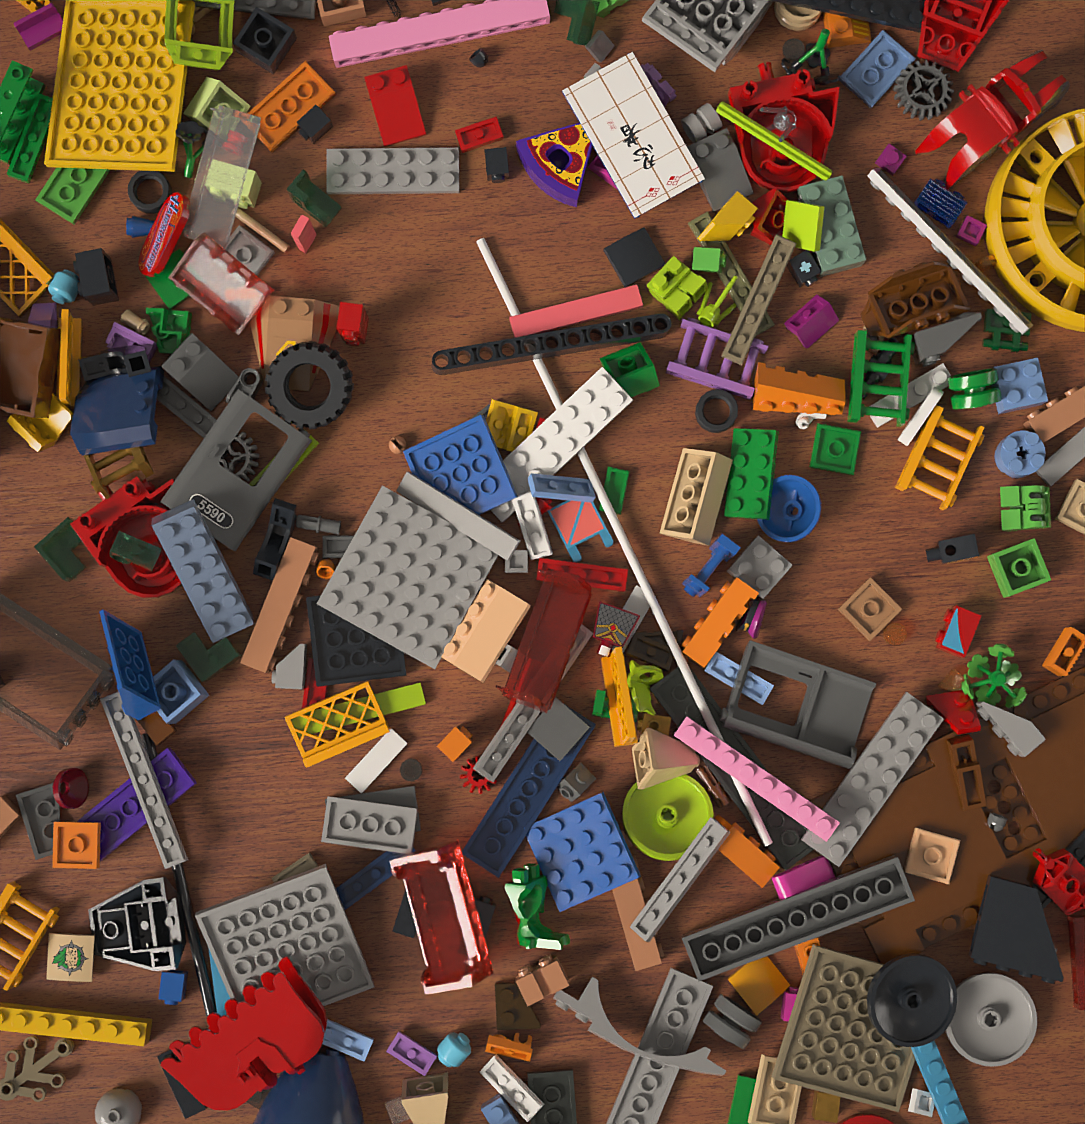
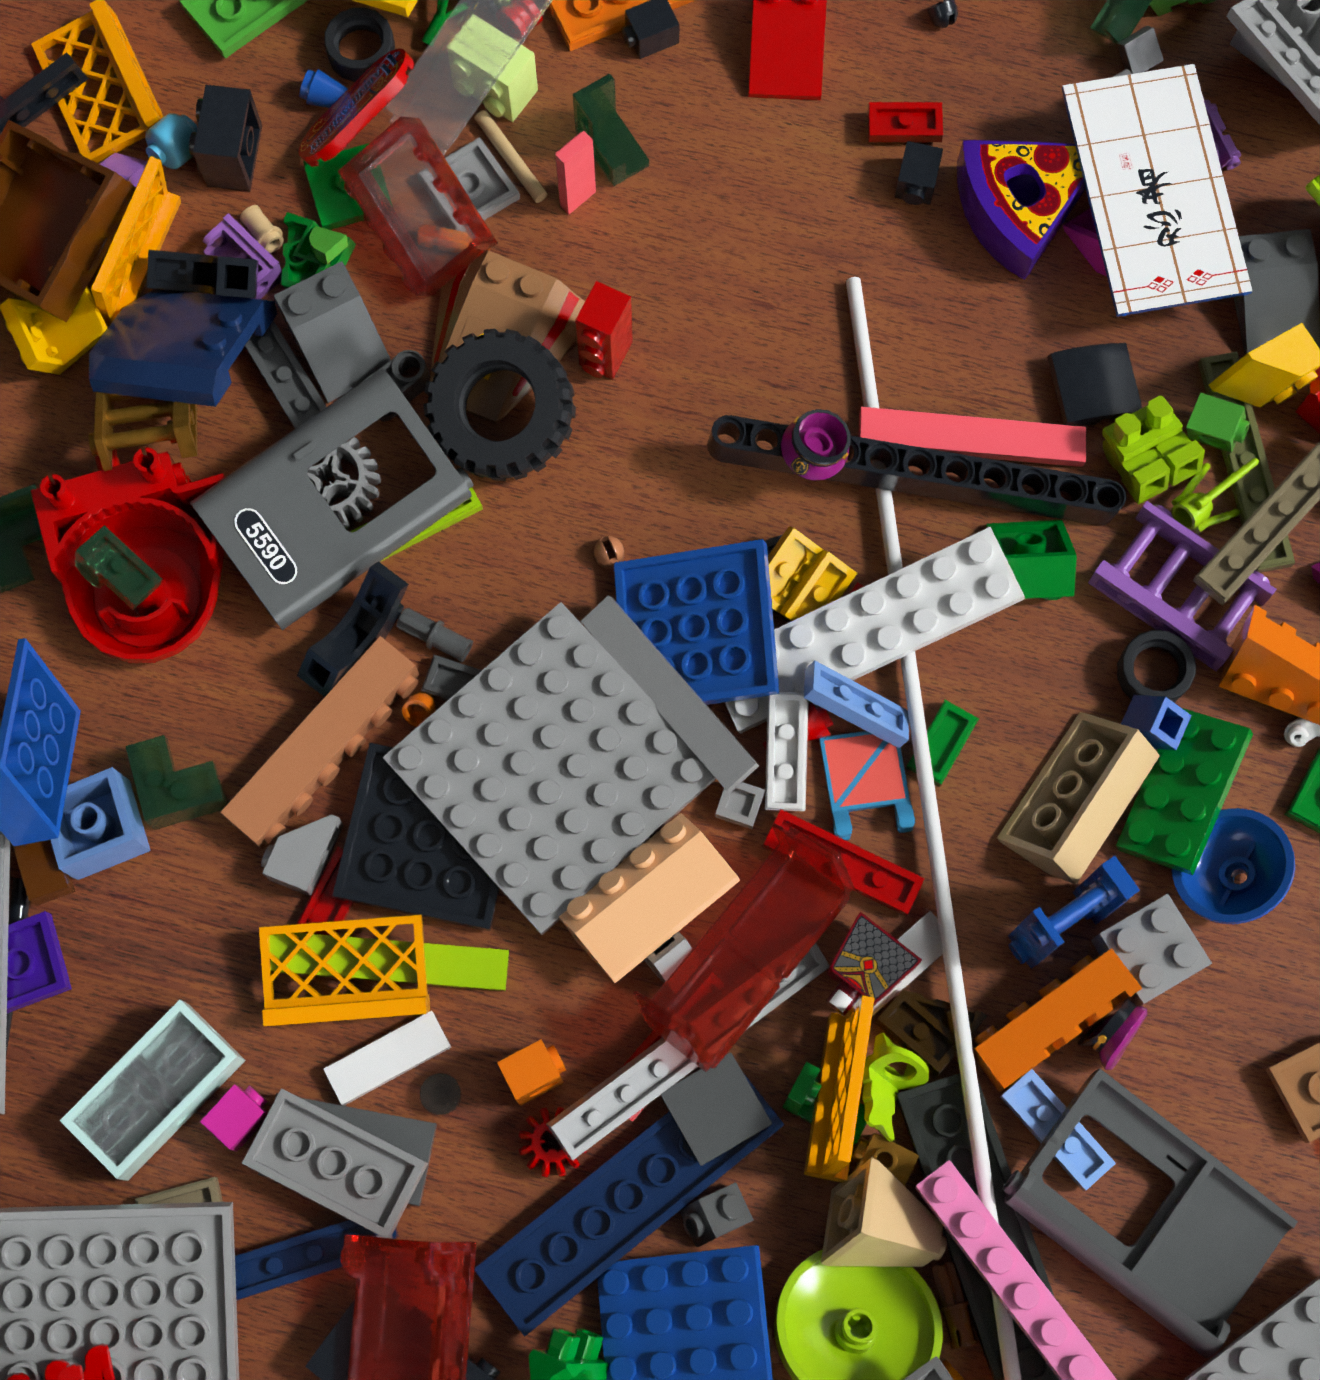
camera: 20 degrees right, 10 degrees down
(176, 320) = (327, 244): none -> bright green tile
(202, 570) = (215, 638): sand blue brick -> none
(260, 820) = (152, 1091): none -> clear brick
(308, 818) = (236, 1116): none -> dark pink brick
(393, 171) = (750, 134): light grey plate -> none
(492, 352) = (816, 444): none -> magenta piece
(699, 124) = (1276, 212): light grey wheel -> none
(724, 442) = (1158, 720): none -> blue brick

